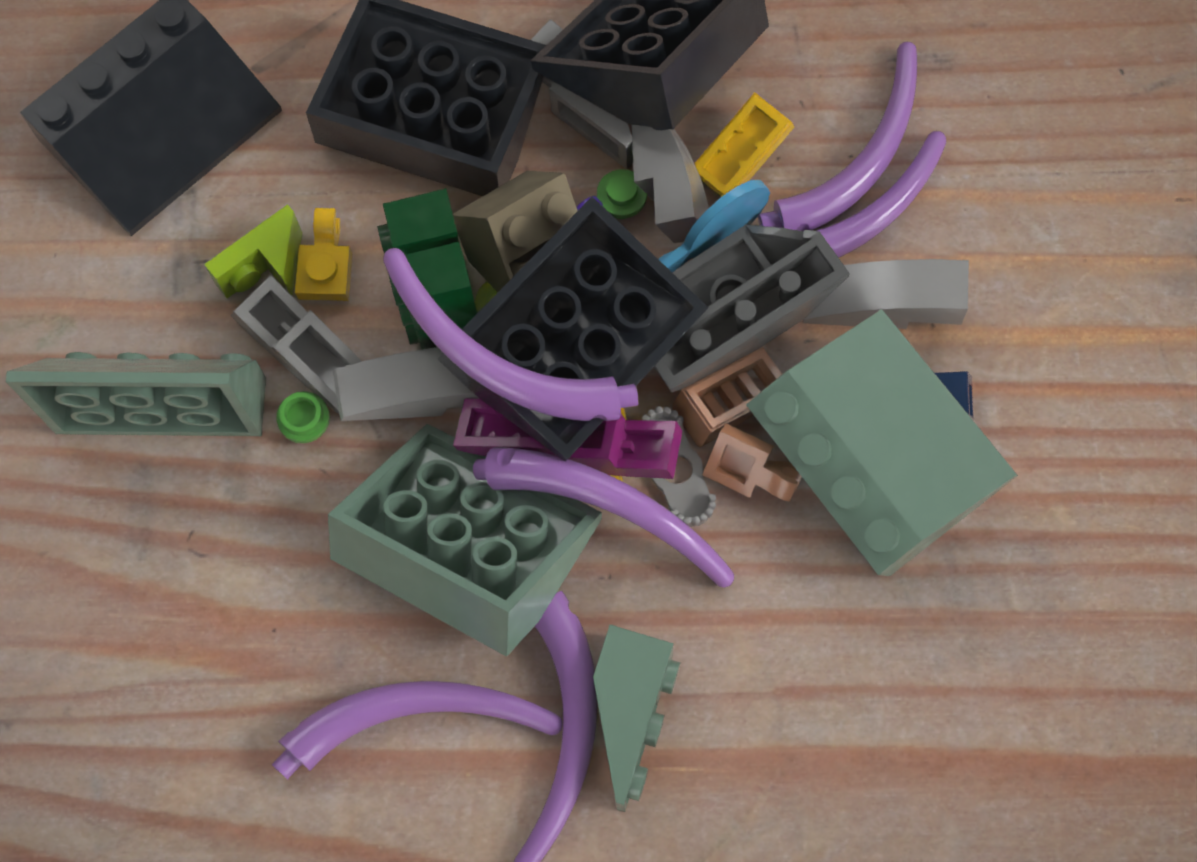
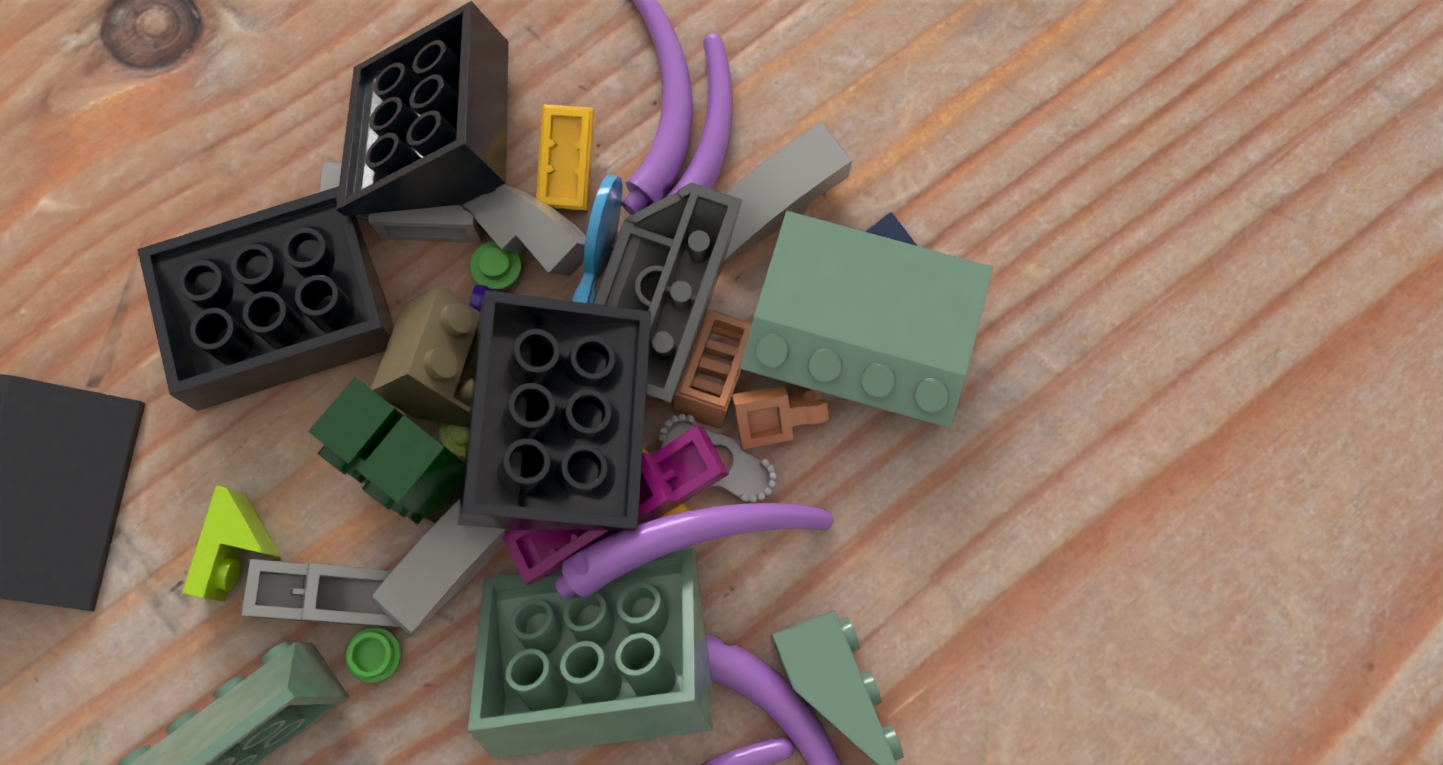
camera: 40 degrees left, 5 degrees up
(325, 266) = (290, 512): yellow plate -> none
(539, 392) = (569, 494): medium lavender animal -> none

